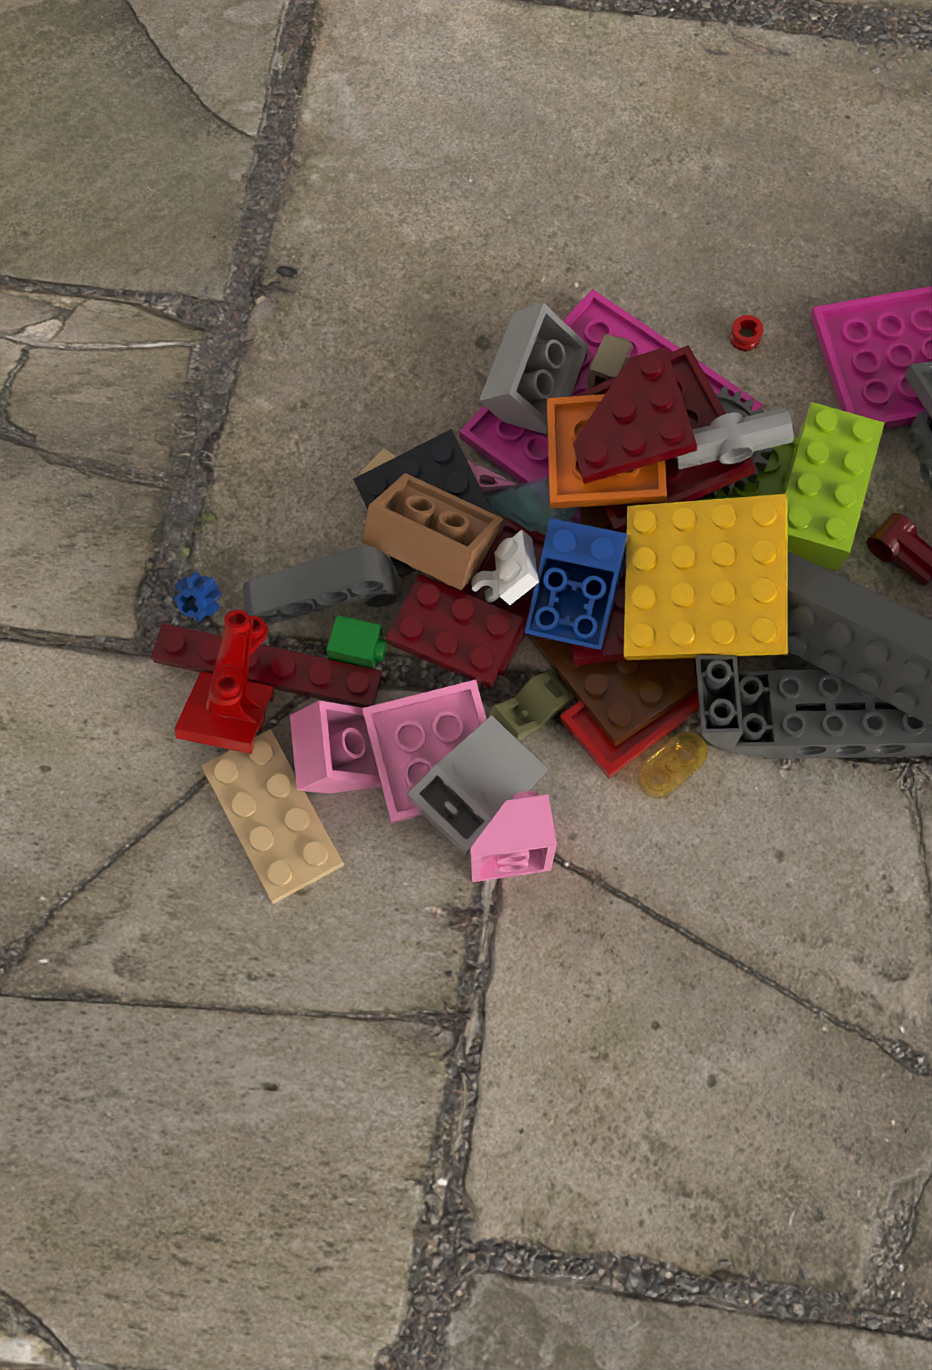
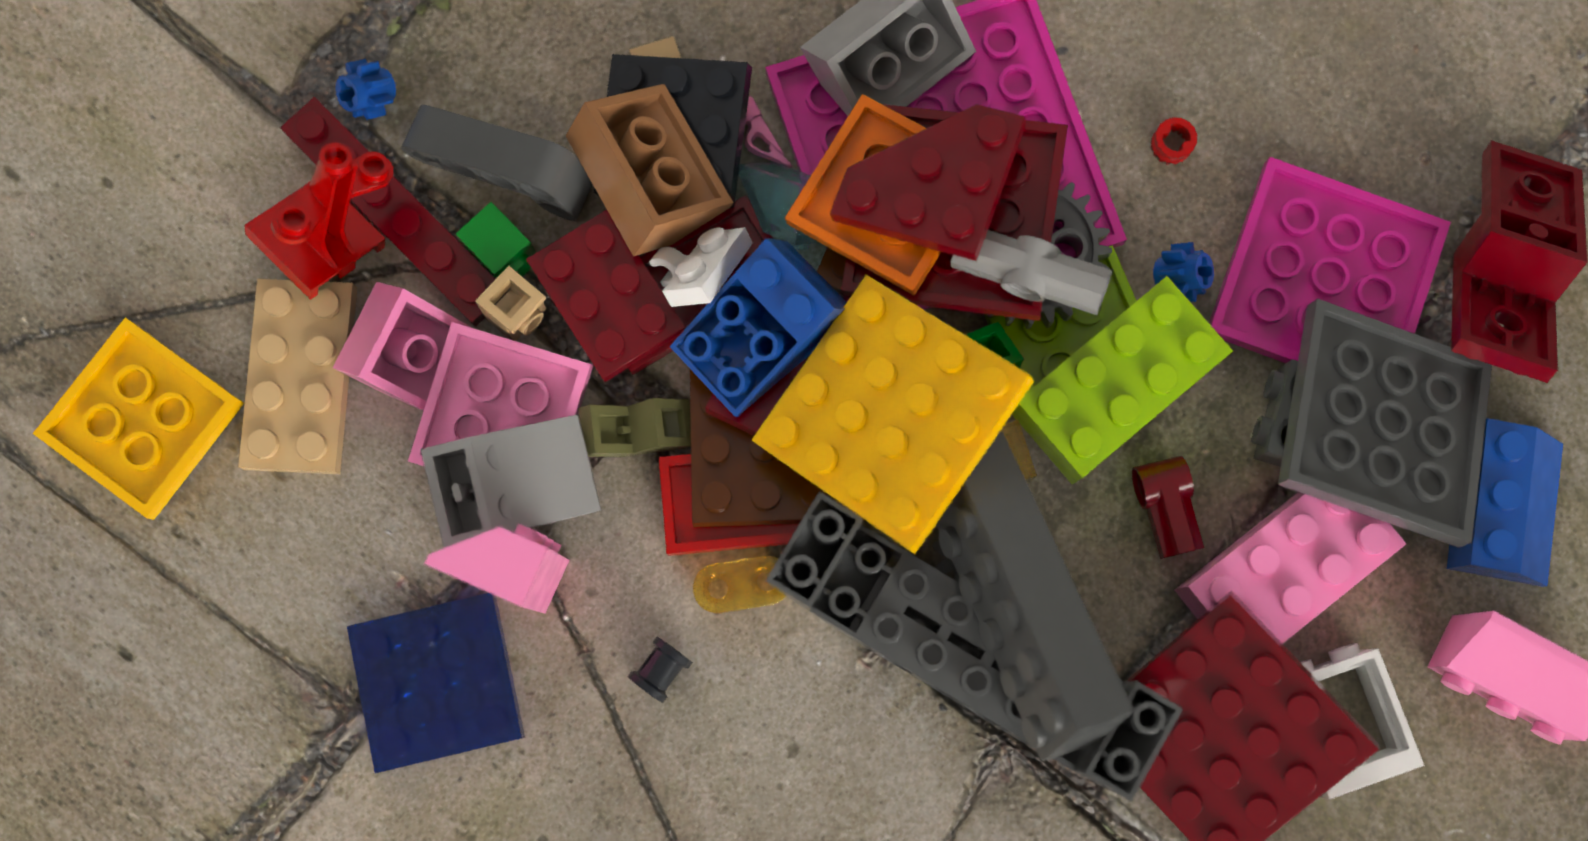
camera: 30 degrees right, 10 degrees up
(176, 911) = (138, 419): none -> yellow plate
(396, 672) = (518, 310): none -> tan brick
(508, 963) = (435, 682): none -> clear blue plate
(609, 359) = (983, 83): dark tan brick -> none
(657, 854) = (659, 669): none -> black bush
(805, 394) = (1186, 268): none -> blue gear

